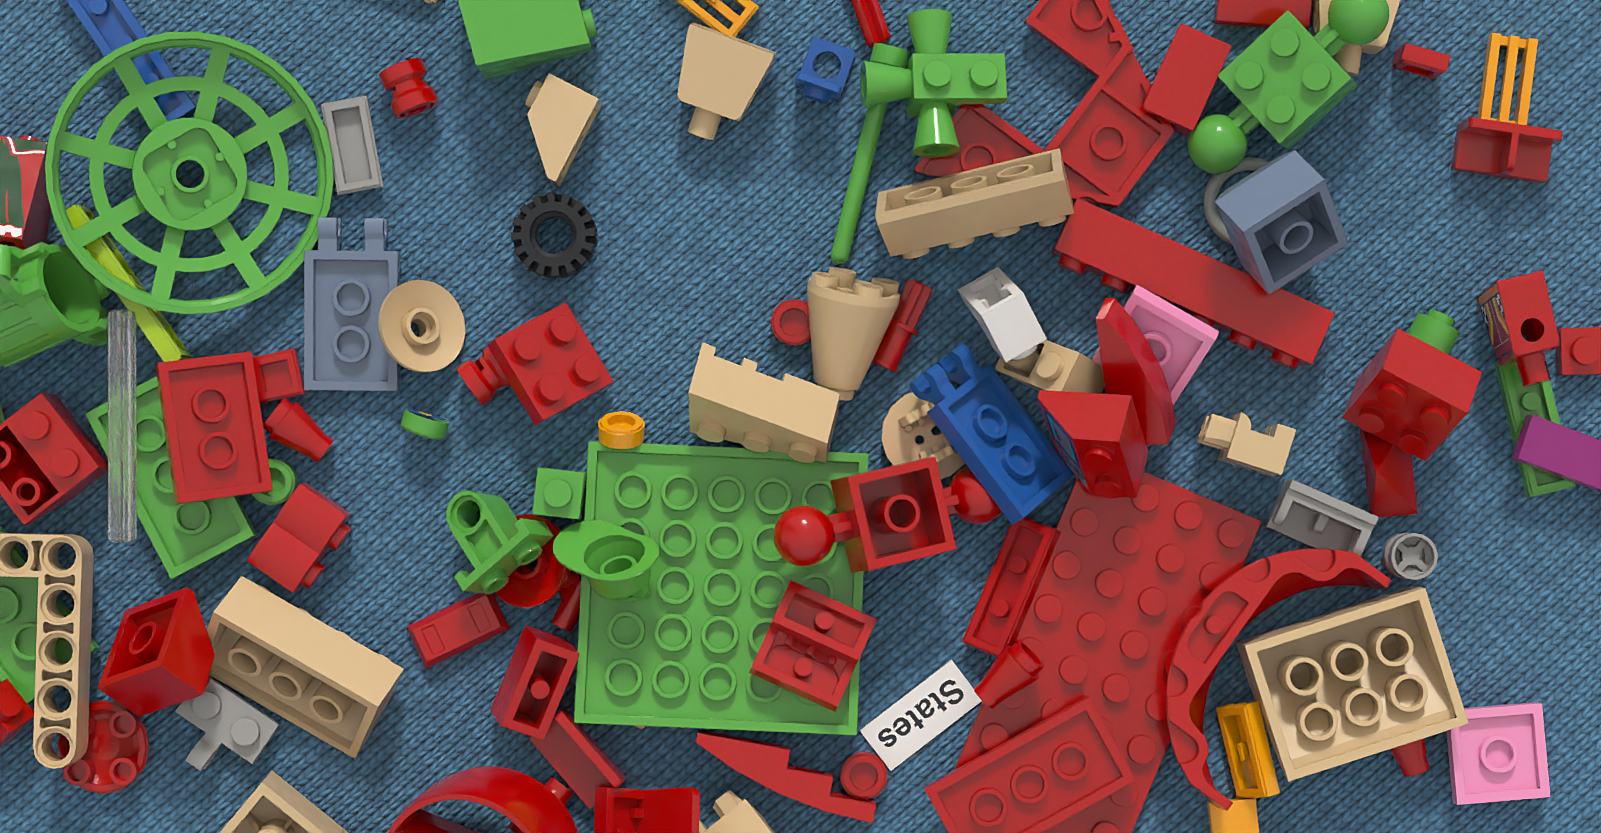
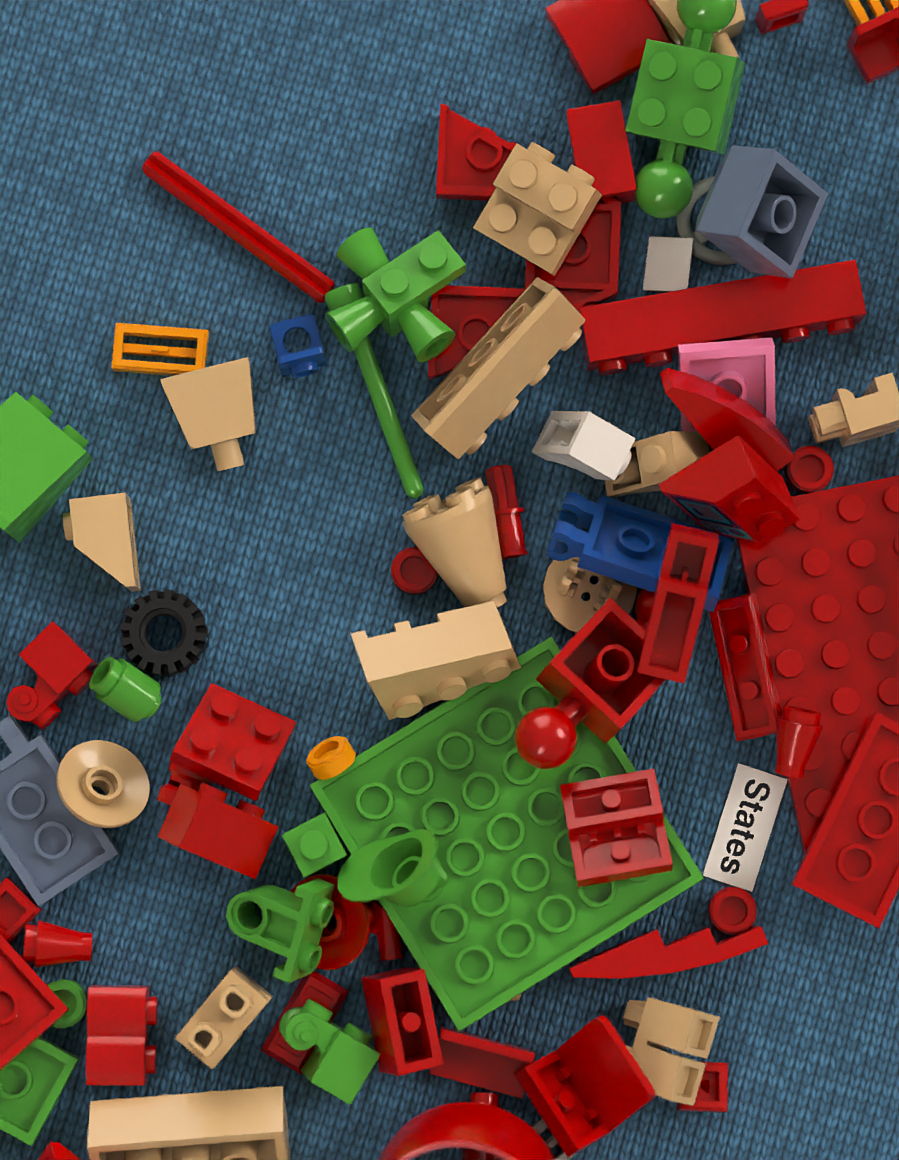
camera: 30 degrees left, 5 degrees down
(393, 581) = (224, 1017): none -> tan hips
(424, 424) = (160, 865): bright green tile -> none
(450, 208) = (60, 670): none -> red brick
(467, 675) = (340, 1055): none -> bright green brick
(489, 428) = (217, 830): none -> red brick
(491, 261) = (126, 689): none -> bright green brick
(987, 499) = (678, 602): none -> red slope
(1100, 90) = (538, 207): none -> tan plate
(1177, 460) = (809, 470): none -> red tile
(1178, 209) = (668, 263): none -> white sticker

